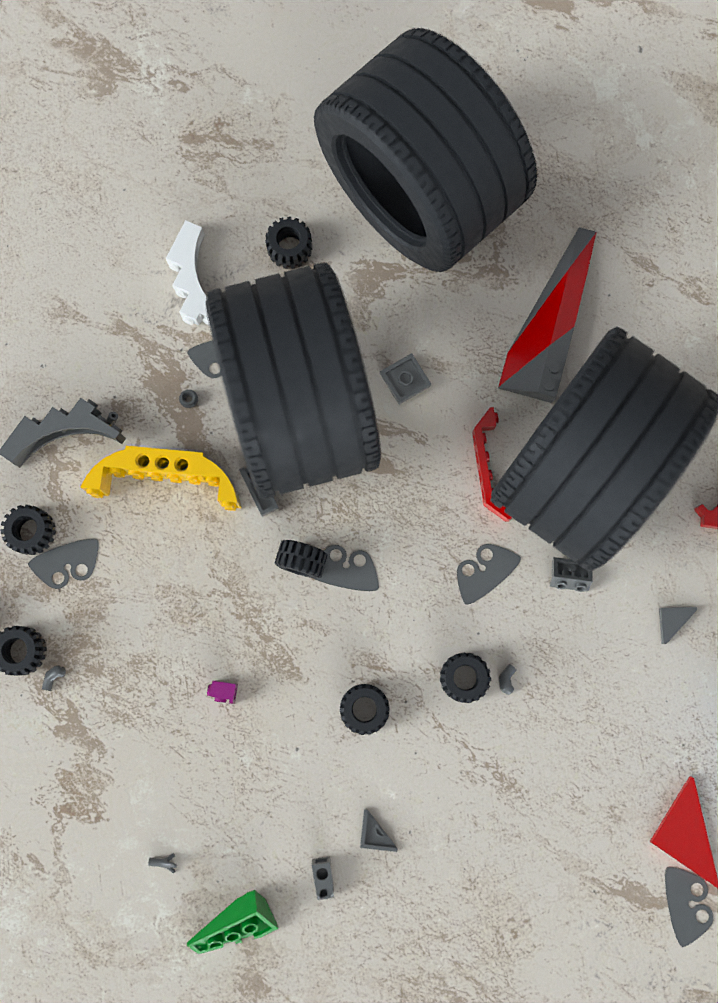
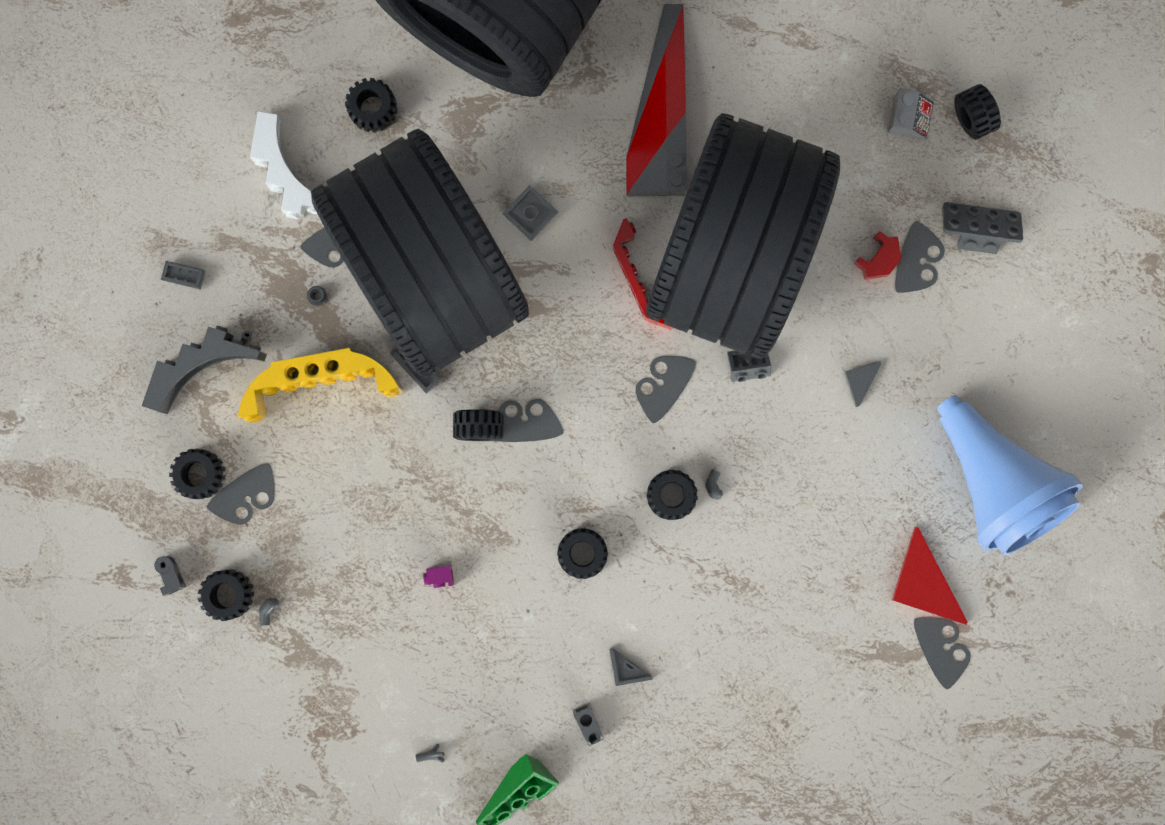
camera: 15 degrees left, 5 degrees up
(73, 346) = (183, 275): none -> dark grey plate

